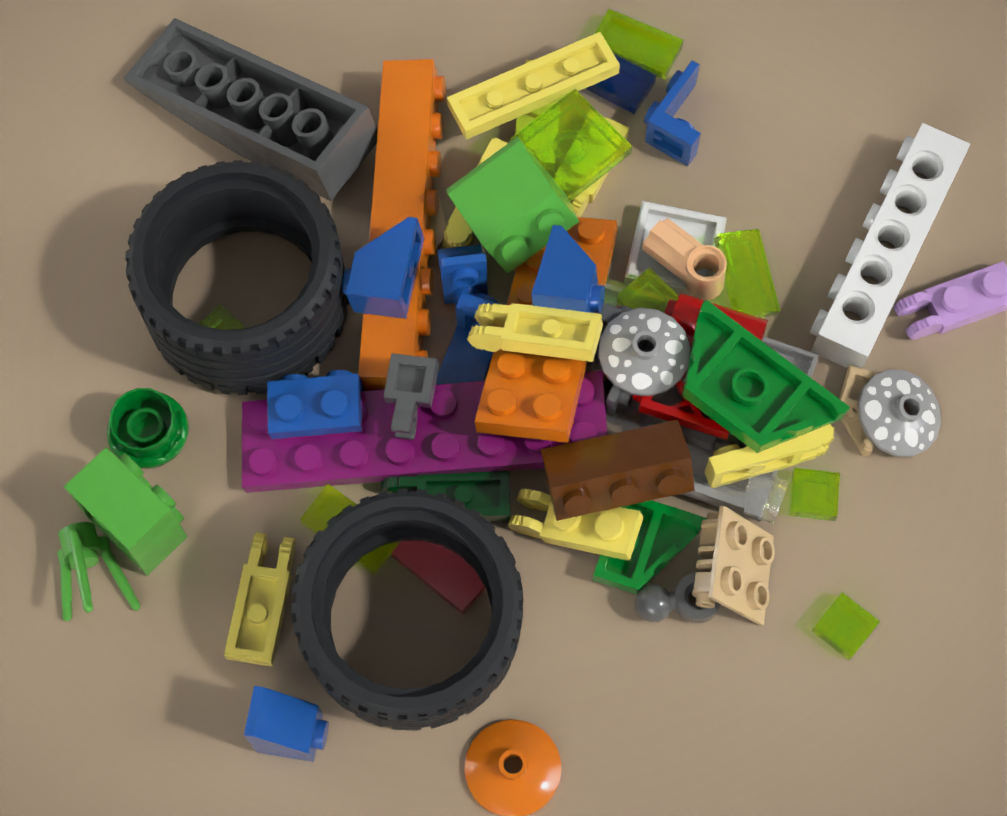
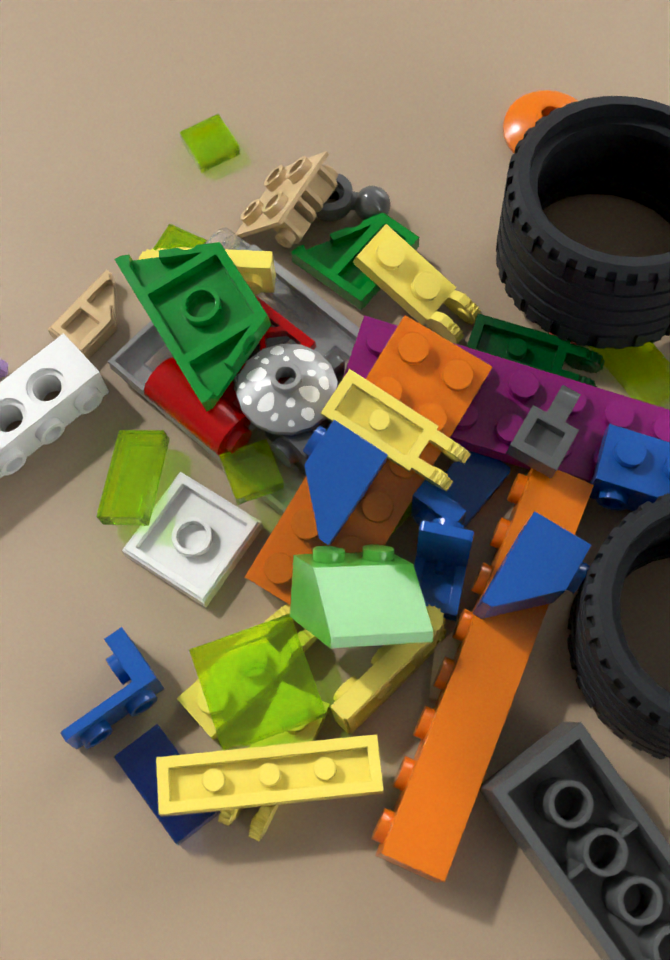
camera: 155 degrees left, 0 degrees up
(618, 470) = (361, 288): reddish brown brick -> none
(640, 43) = (114, 820): clear neon green tile -> none
(685, 256) = (191, 500): light nougat piece -> none
(885, 419) = (60, 295): light grey dish -> none

